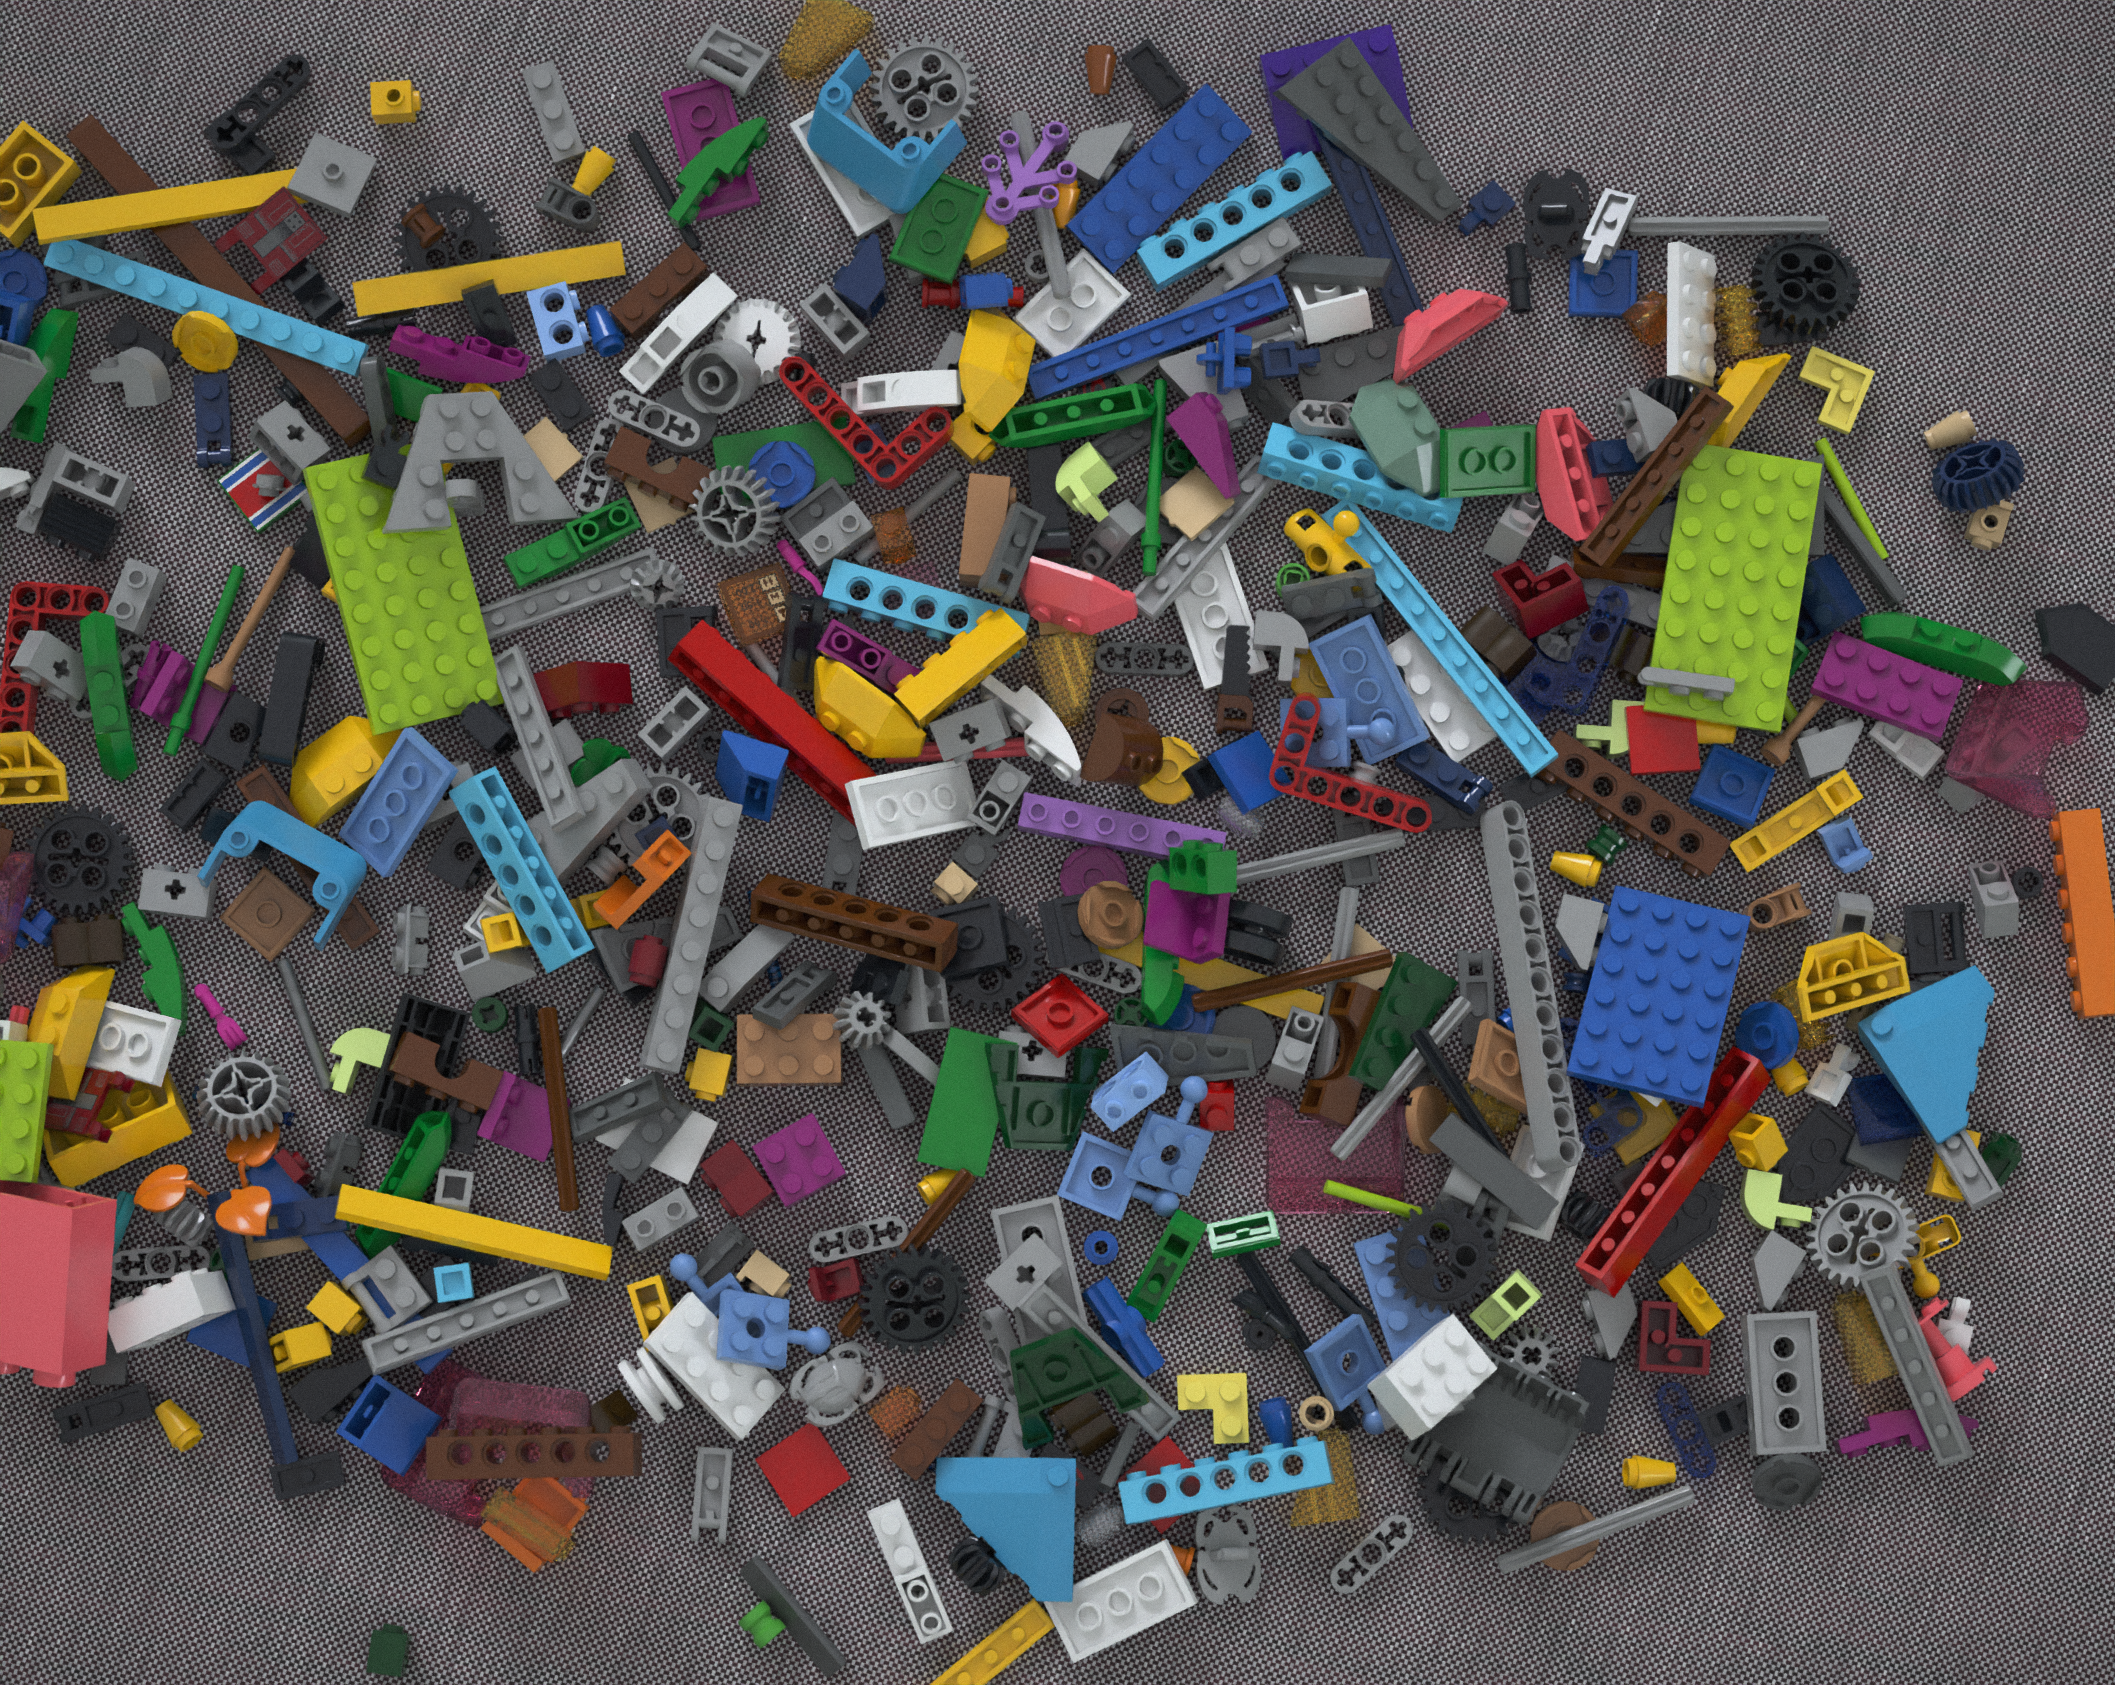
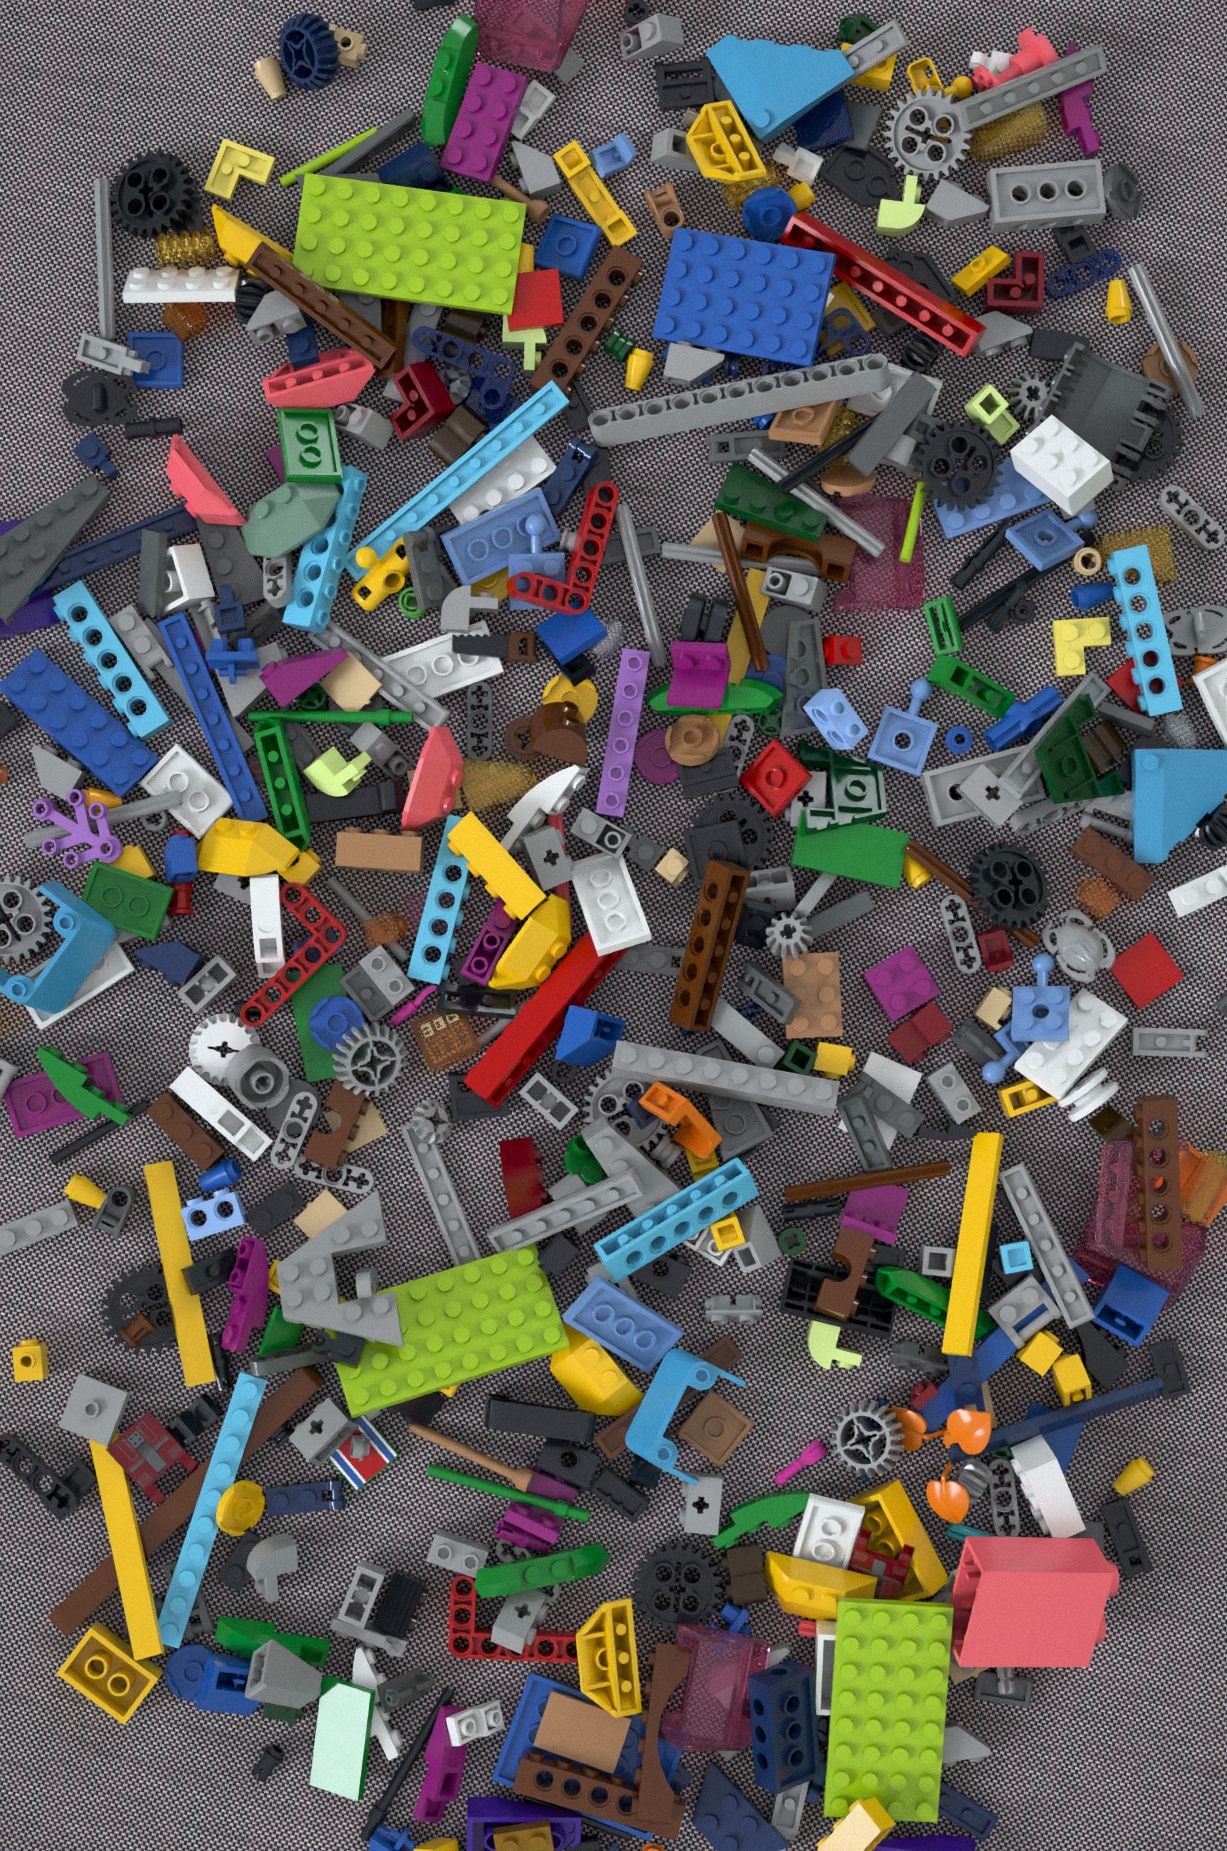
camera: 90 degrees left, 5 degrees up
(305, 1024) = (804, 1392): flat silver bar -> none
(573, 544) = (400, 1193): green slope -> none
(580, 1021) = (792, 1167): flat silver bar -> none
(647, 961) = (747, 1112): dark red brick -> none
(1012, 552) = (401, 826): dark grey plate -> none
(1161, 1131) = (866, 689): medium blue plate -> none
(1203, 868) = (657, 661): green brick -> none
(1682, 683) = (492, 279): light grey hinge -> none
(1757, 1142) = (855, 219): yellow brick -> none

